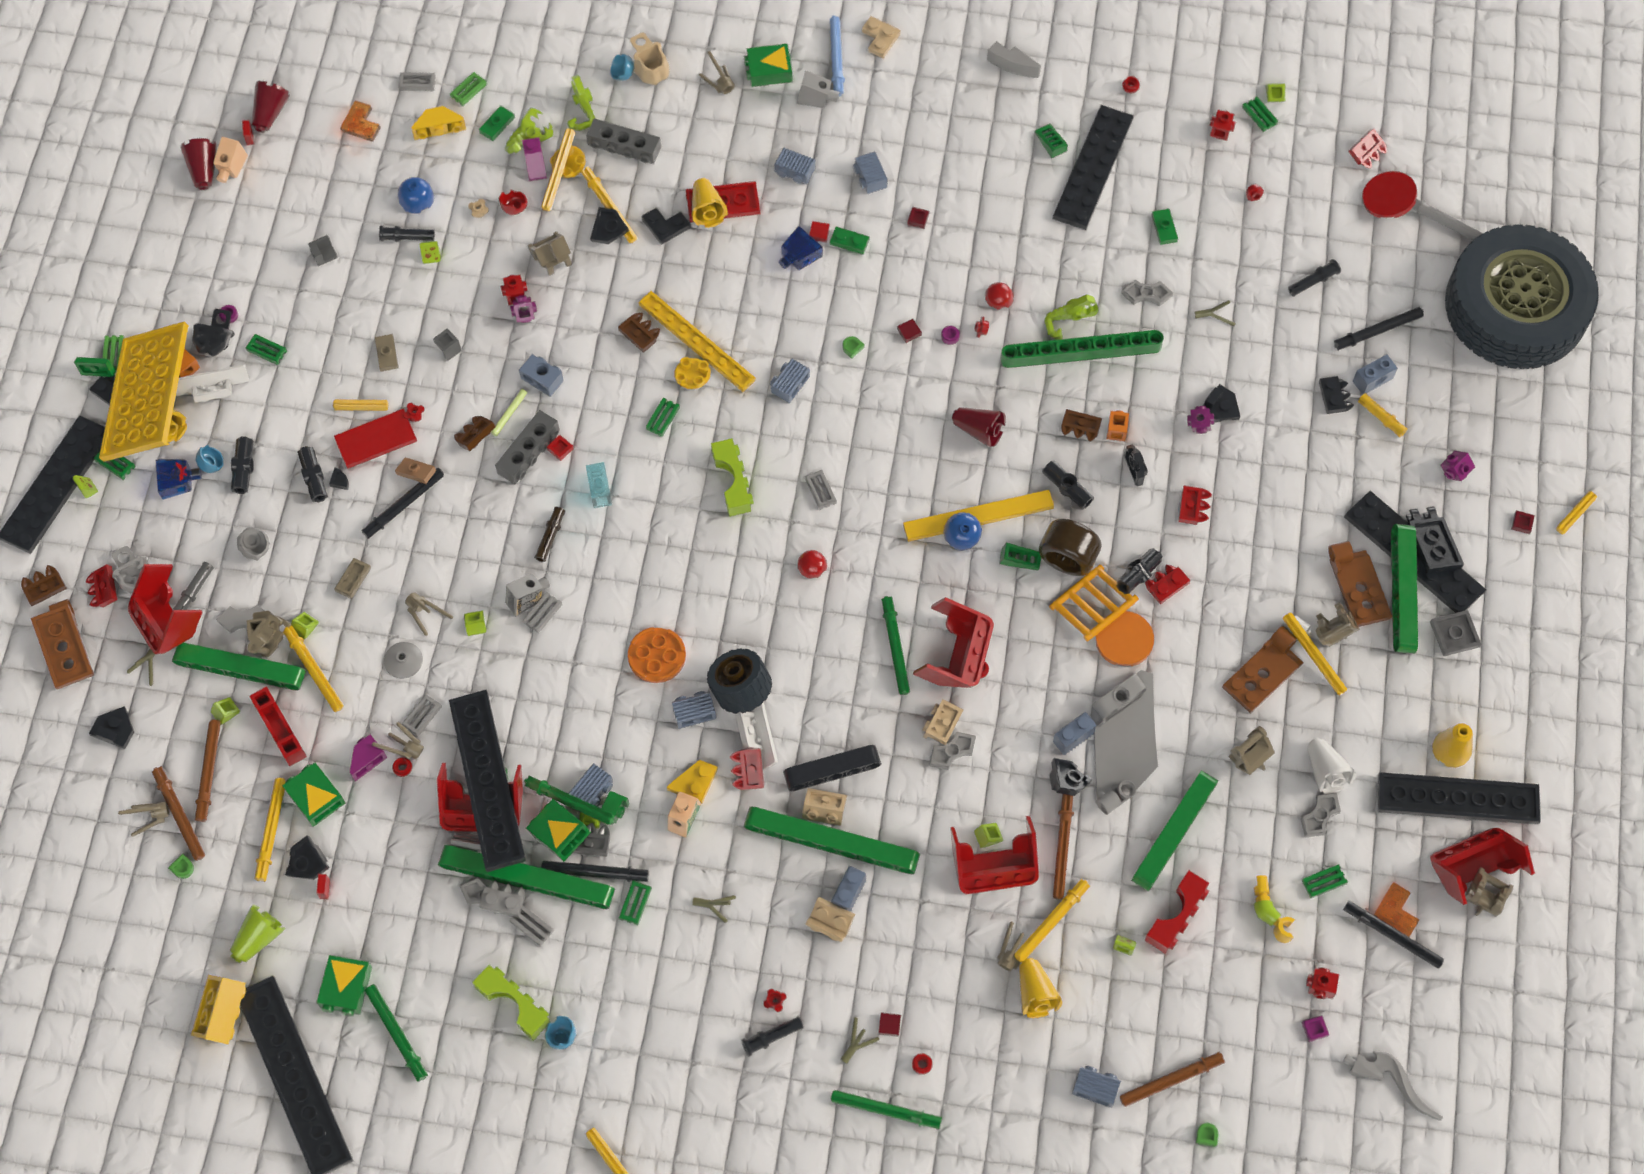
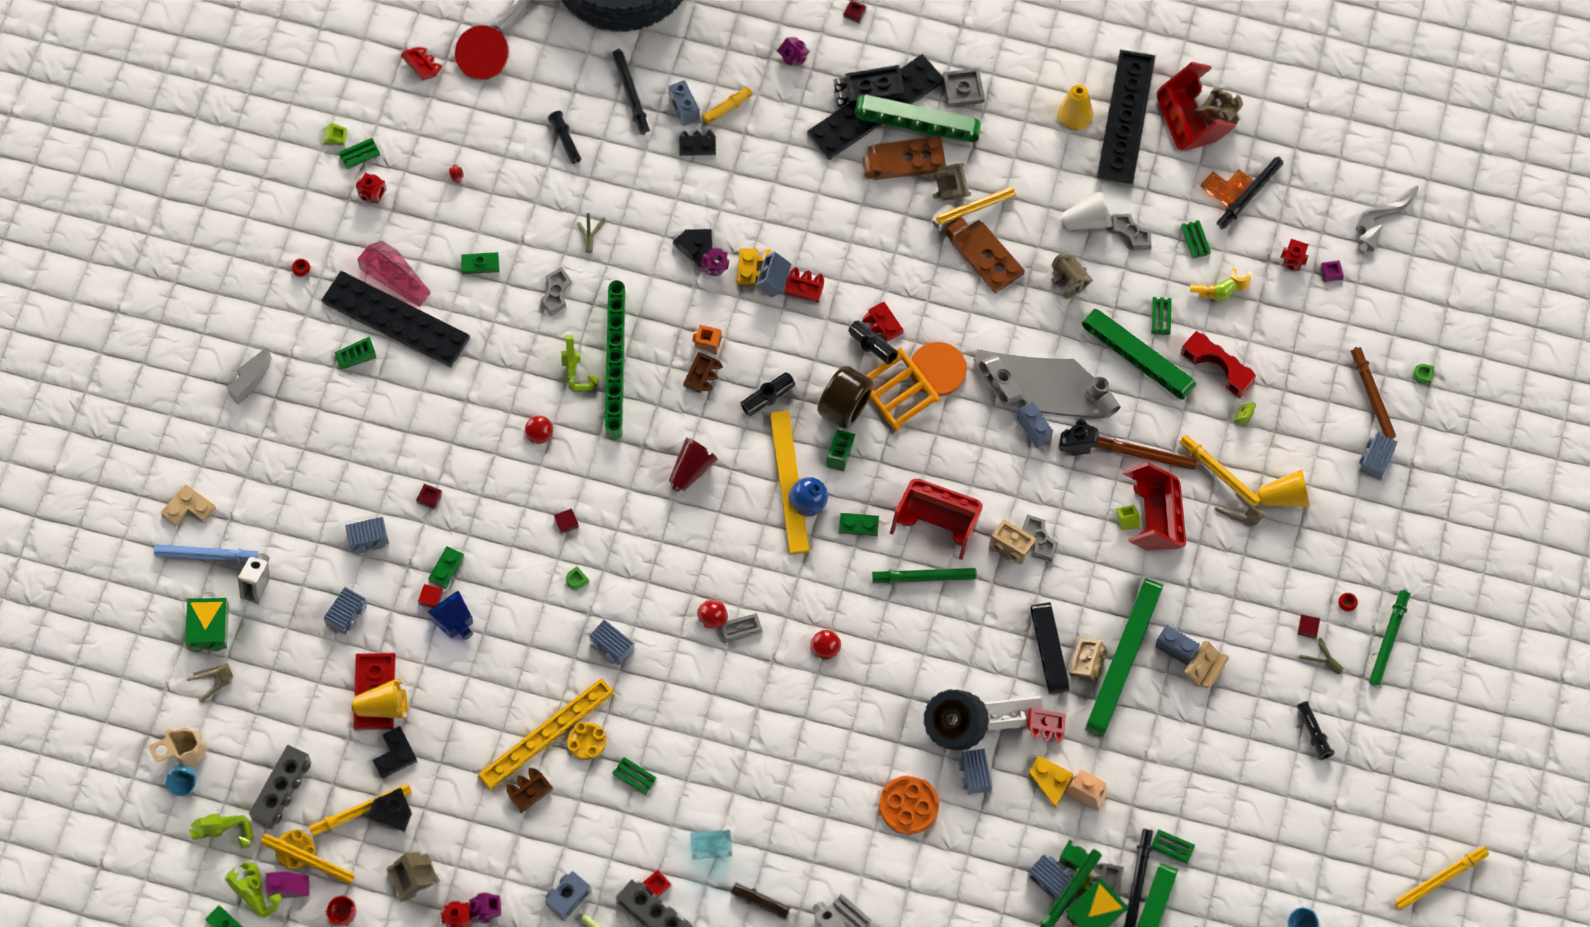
camera: 85 degrees left, 0 degrees up
(710, 903) = (1181, 774): olive plant -> none
(726, 457) = (741, 706): lime arch -> none
(772, 994) = (1285, 723): red plate -> none
(829, 461) = (712, 614): none -> red hair
(942, 581) = (858, 524): none -> green plate
(950, 335) = (577, 482): magenta tile -> none
(981, 327) = (575, 450): red plate -> none
(1136, 464) = (754, 328): black plate -> none
(1145, 152) = (392, 270): none -> clear pink wedge
(1196, 473) = (773, 274): none -> sand blue brick
(1206, 454) = (747, 265): none -> yellow plate
(1224, 844) = (1161, 301): none -> green tile

